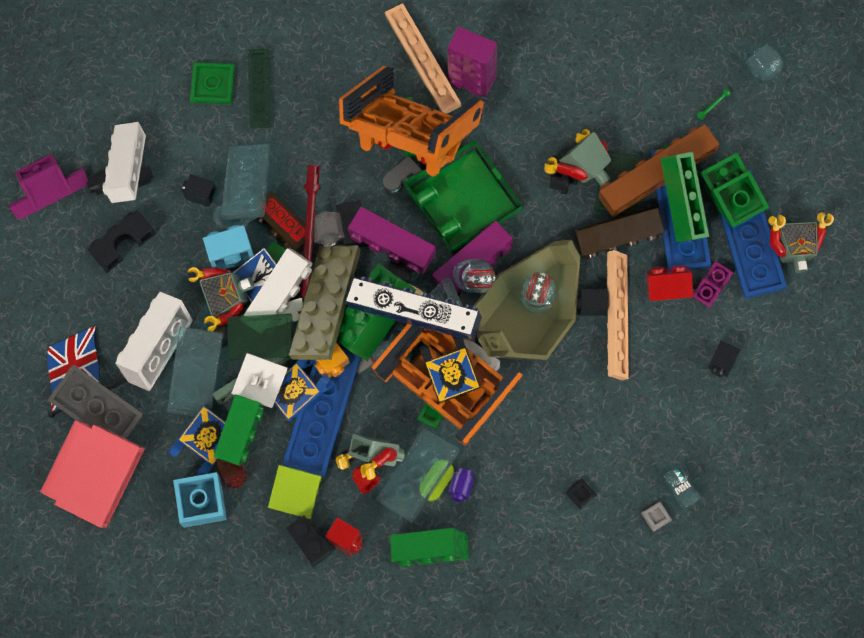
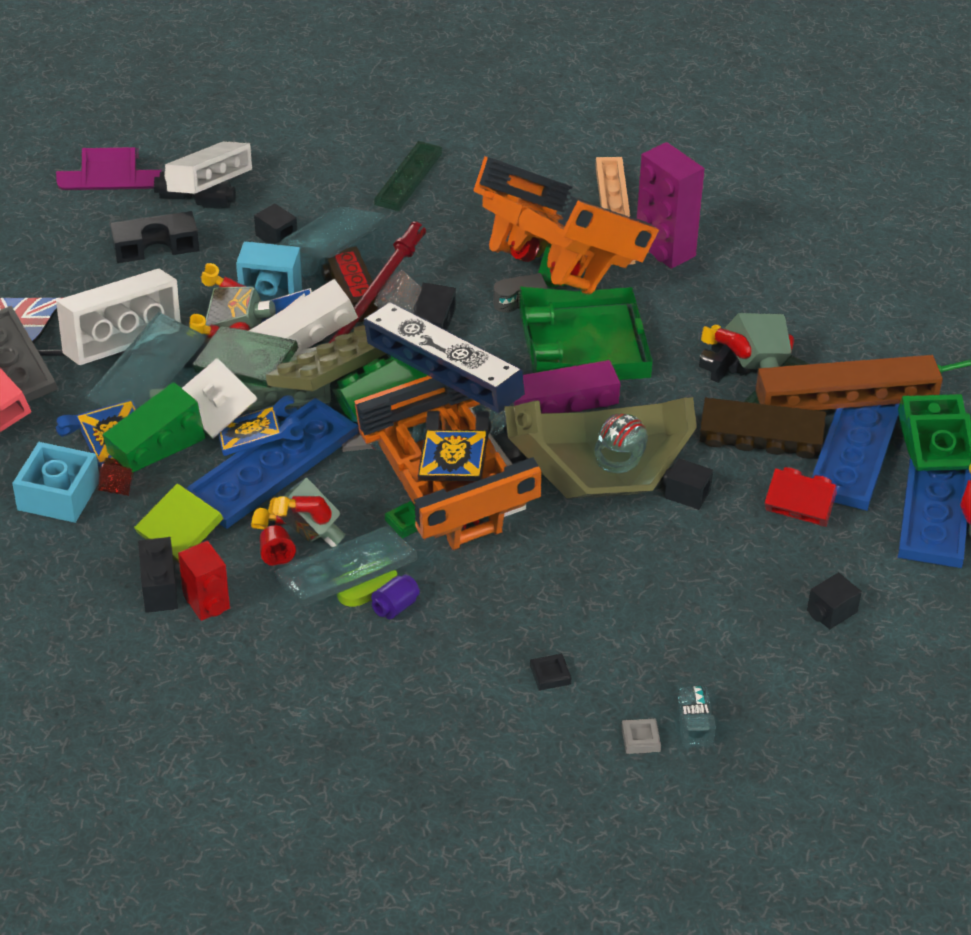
camera: 20 degrees right, 30 degrees down
(212, 83) = (358, 155): green tile -> none
(335, 366) = (315, 409): light orange brick -> none
(391, 240) = (456, 312): magenta brick -> none
(429, 547) = (310, 638): green wedge -> none
(477, 276) = (550, 387): clear light blue helmet -> none
(617, 315) = (712, 509): light nougat plate -> none
(684, 197) = (866, 405): green brick -> none
(712, 284) = (859, 529): magenta slope -> none

